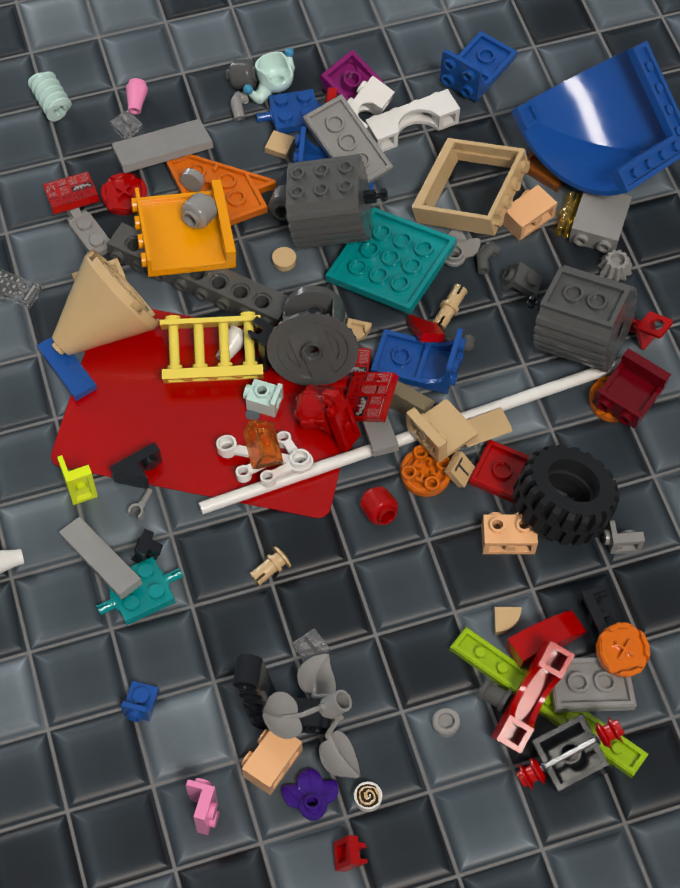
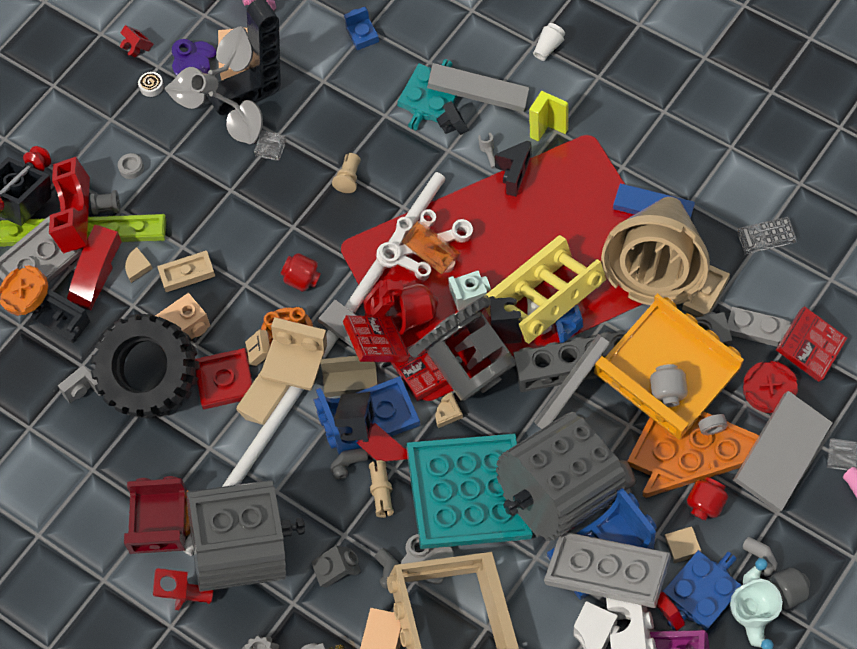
camera: 150 degrees right, 0 degrees up
(212, 333) = (569, 324): none -> blue tile
(239, 152) = (707, 498): none -> red head
(258, 266) = (572, 382): none -> light grey tile
(433, 340) = (356, 412): none -> black hinge
(469, 578) = (186, 271): none -> tan plate

